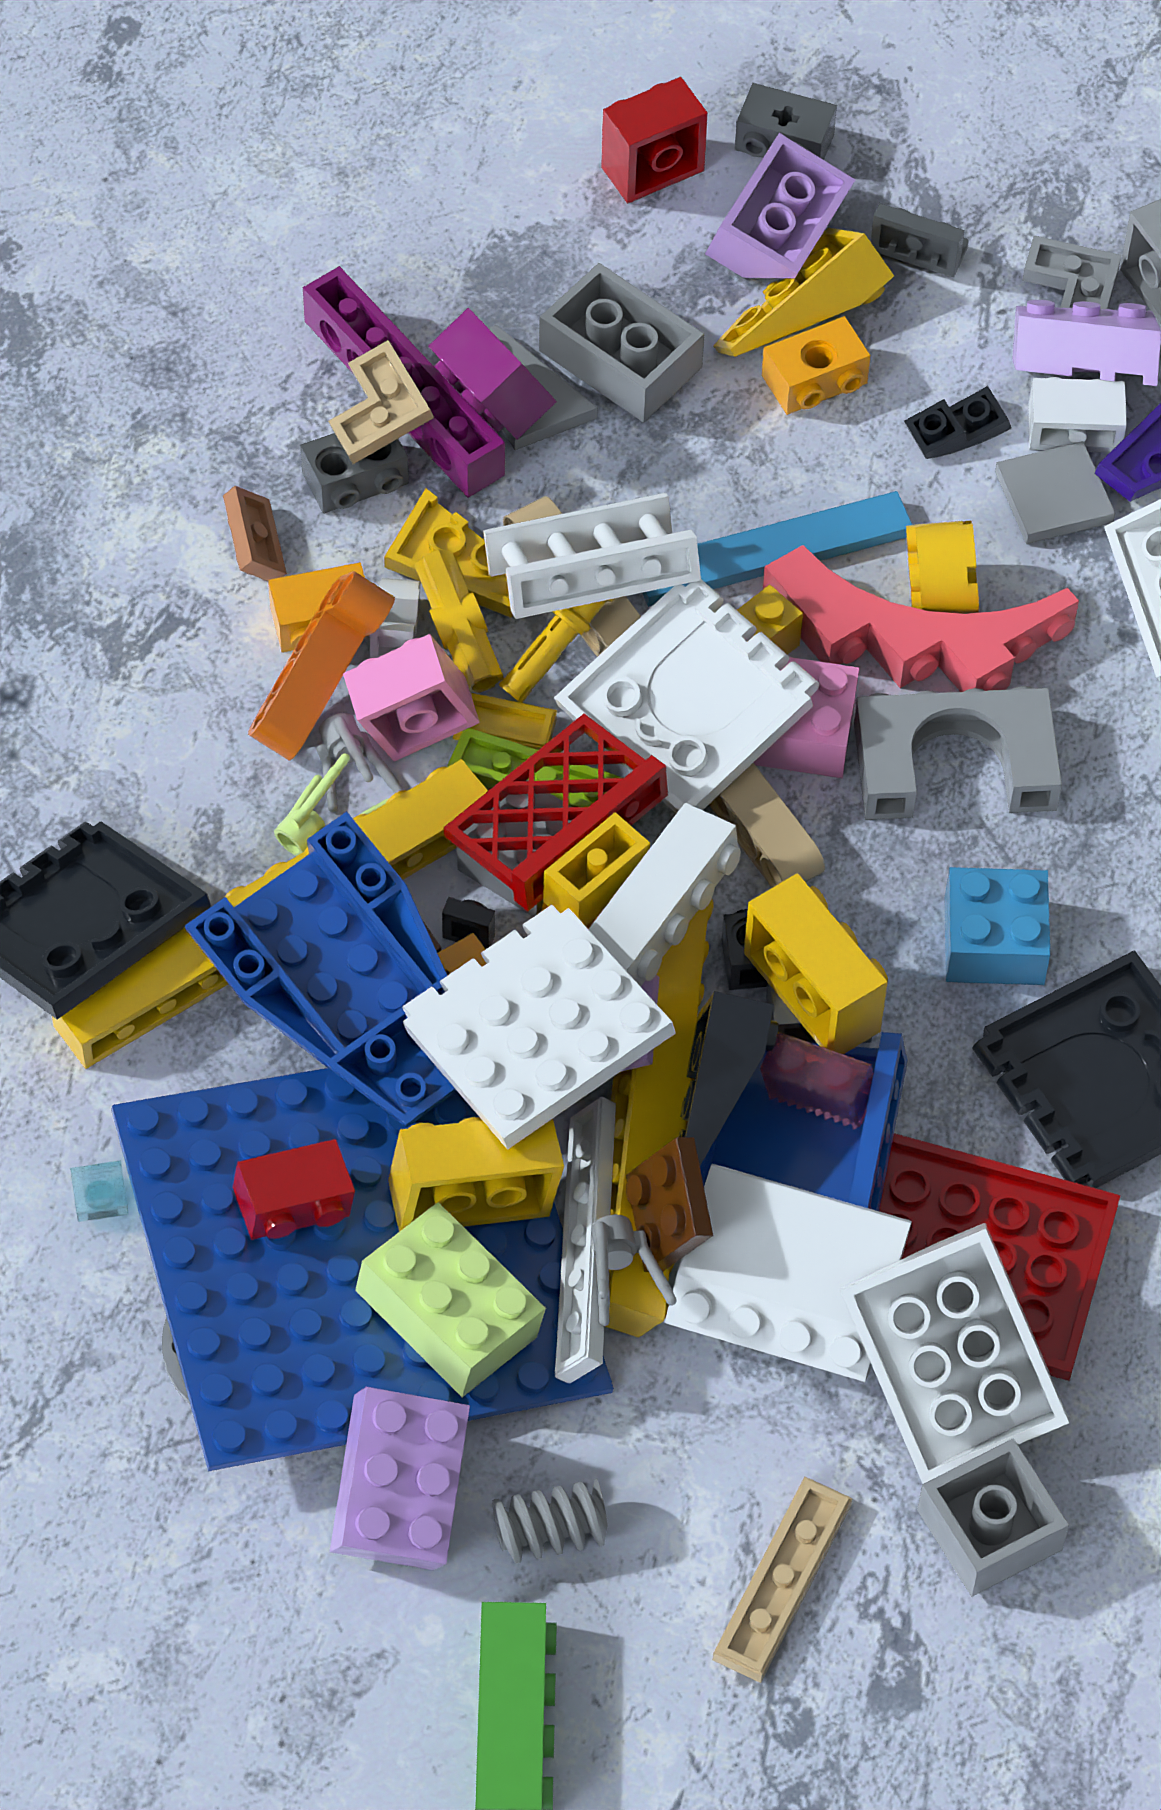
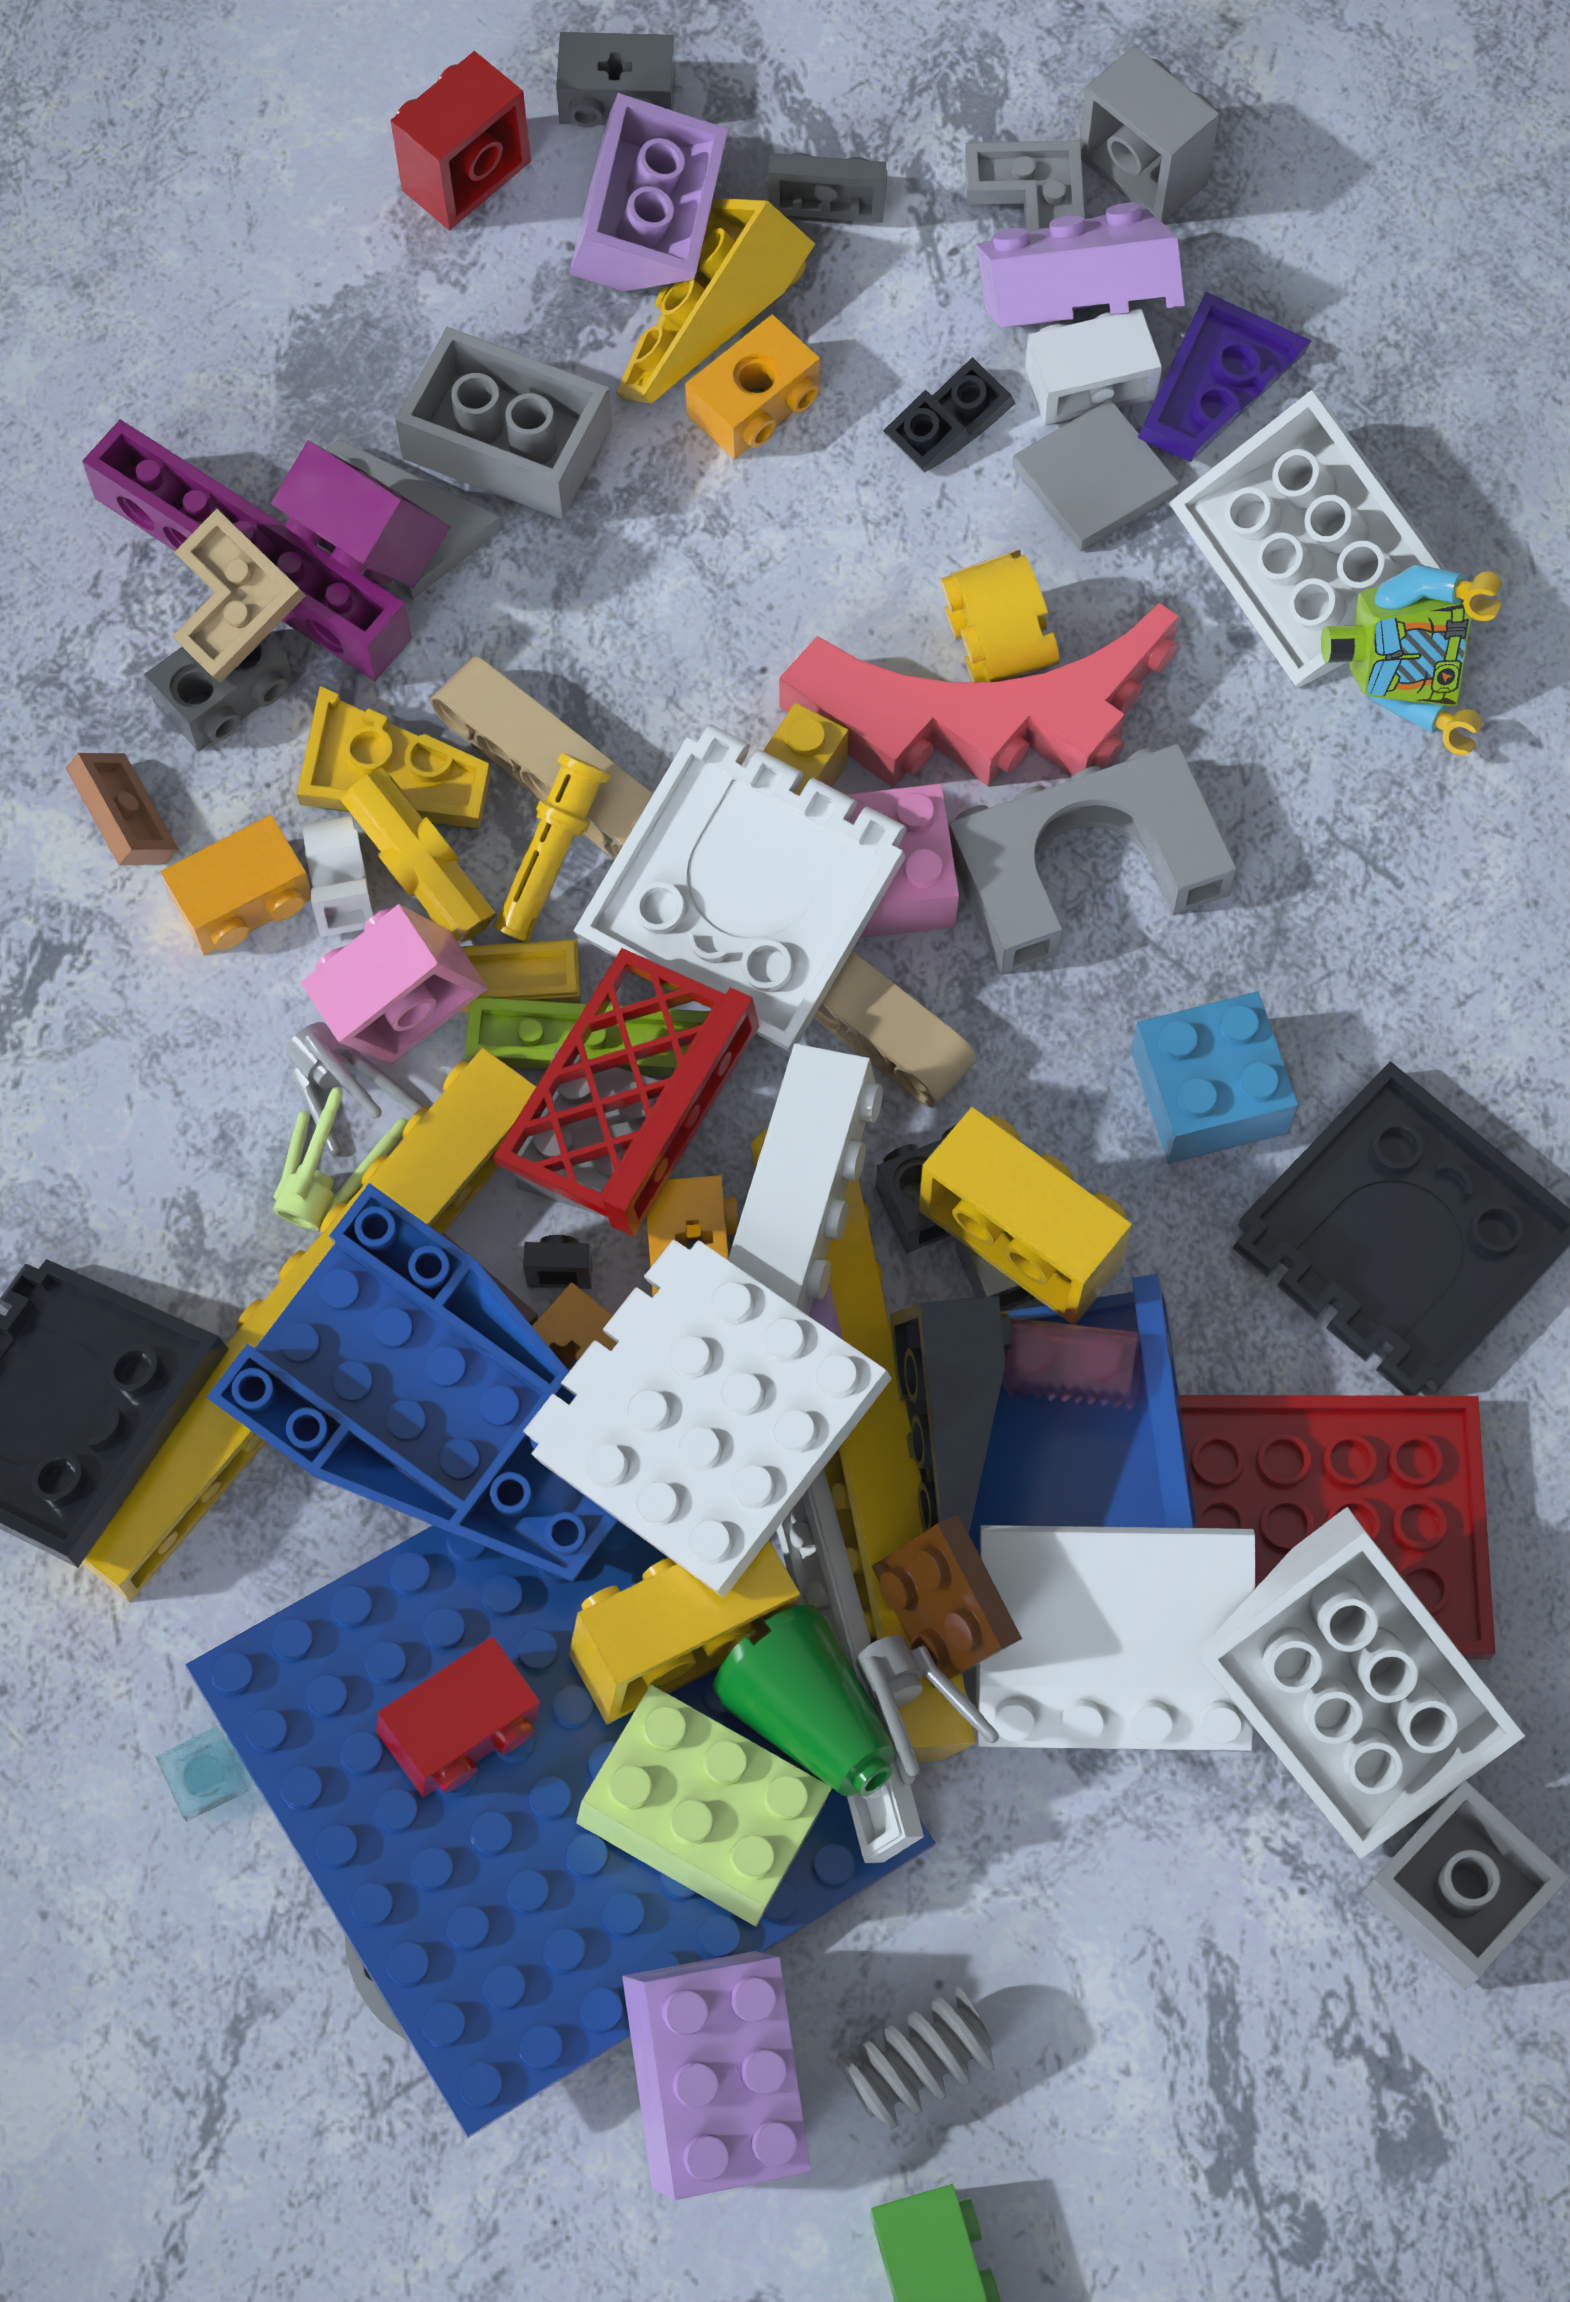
camera: 15 degrees left, 10 degrees up
(306, 683) = (261, 969): orange beam -> none
(546, 1243) = (808, 1701): none -> green cone
(591, 555) = (580, 762): white fence -> none
(594, 869) = (707, 1163): yellow brick -> none
(782, 1579) = (1226, 2040): tan tile -> none
(823, 533) = (770, 644): dark azure tile -> none

